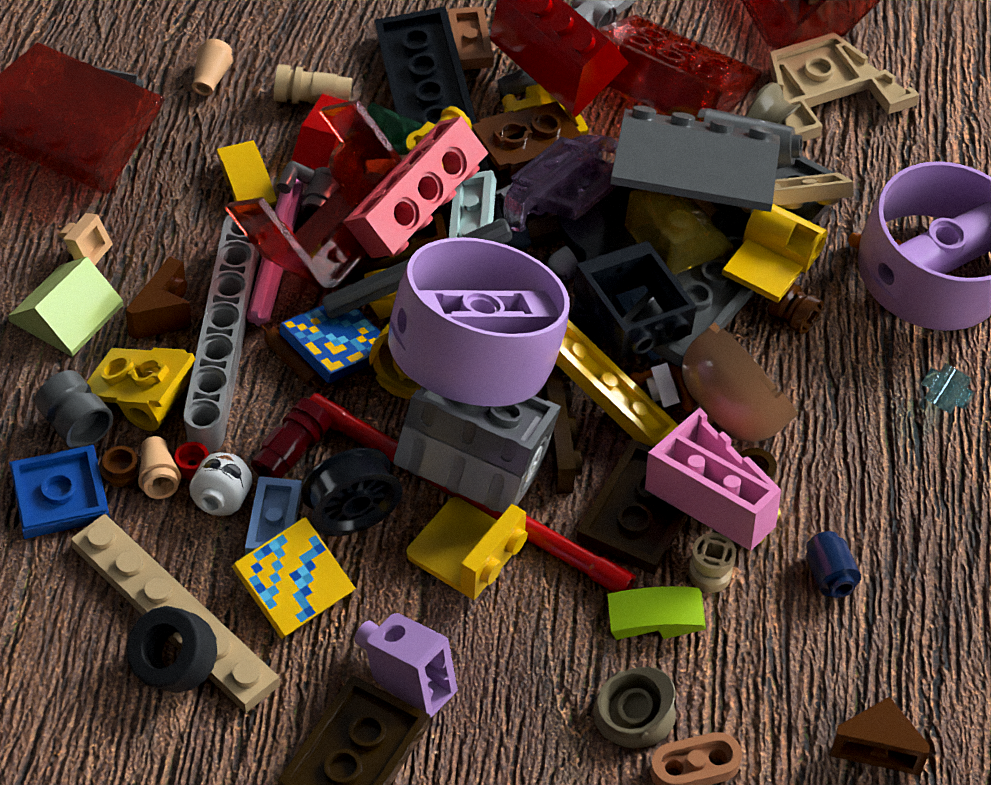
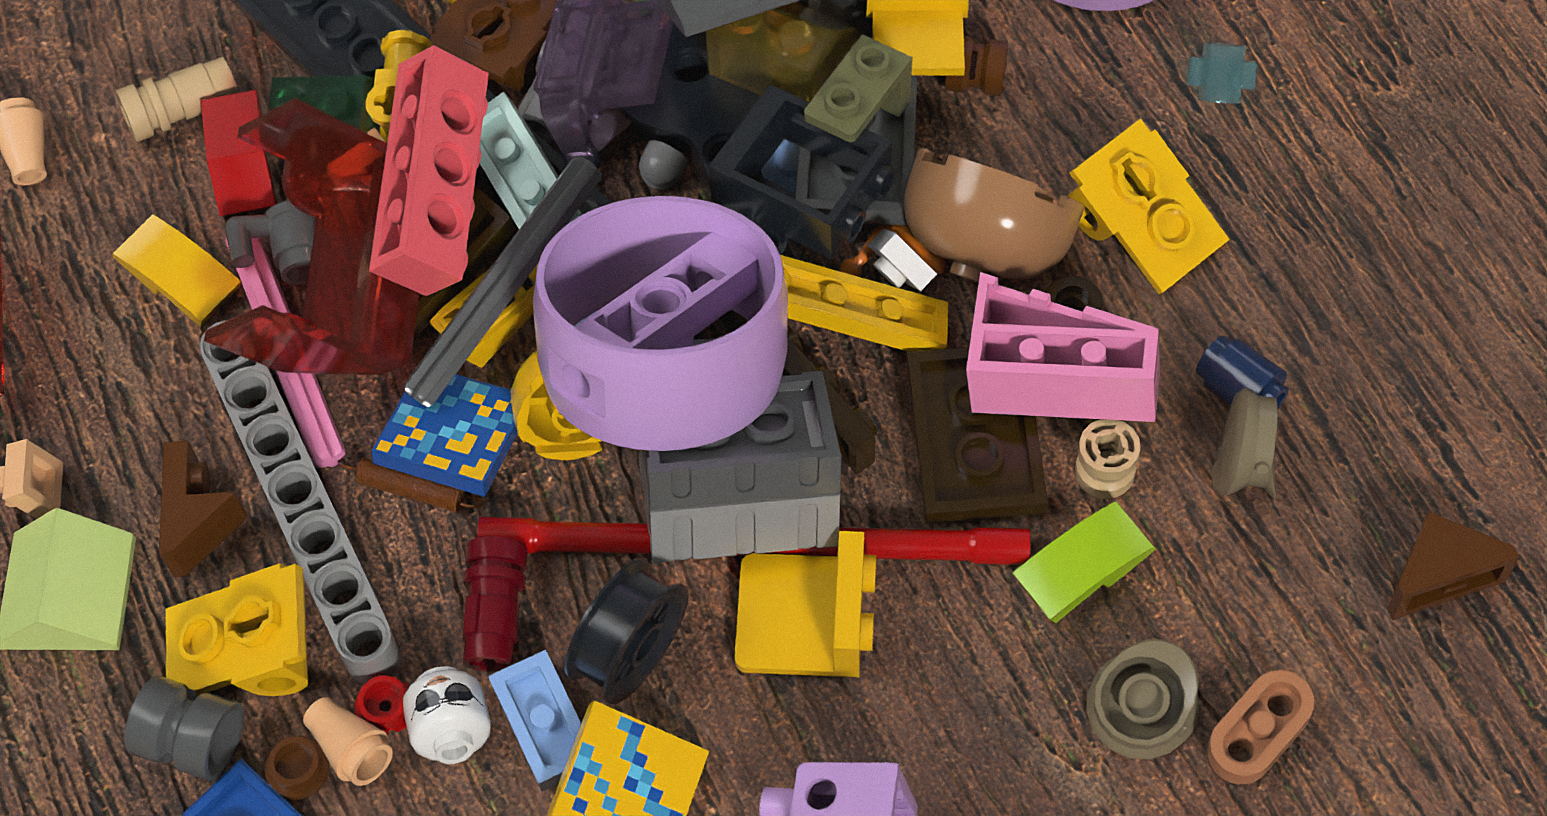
camera: 25 degrees left, 10 degrees up
(707, 266) = (862, 83): none -> olive bracket
(804, 601) = (1247, 445): none -> dark tan piece
(843, 435) = (1145, 201): none -> yellow piece

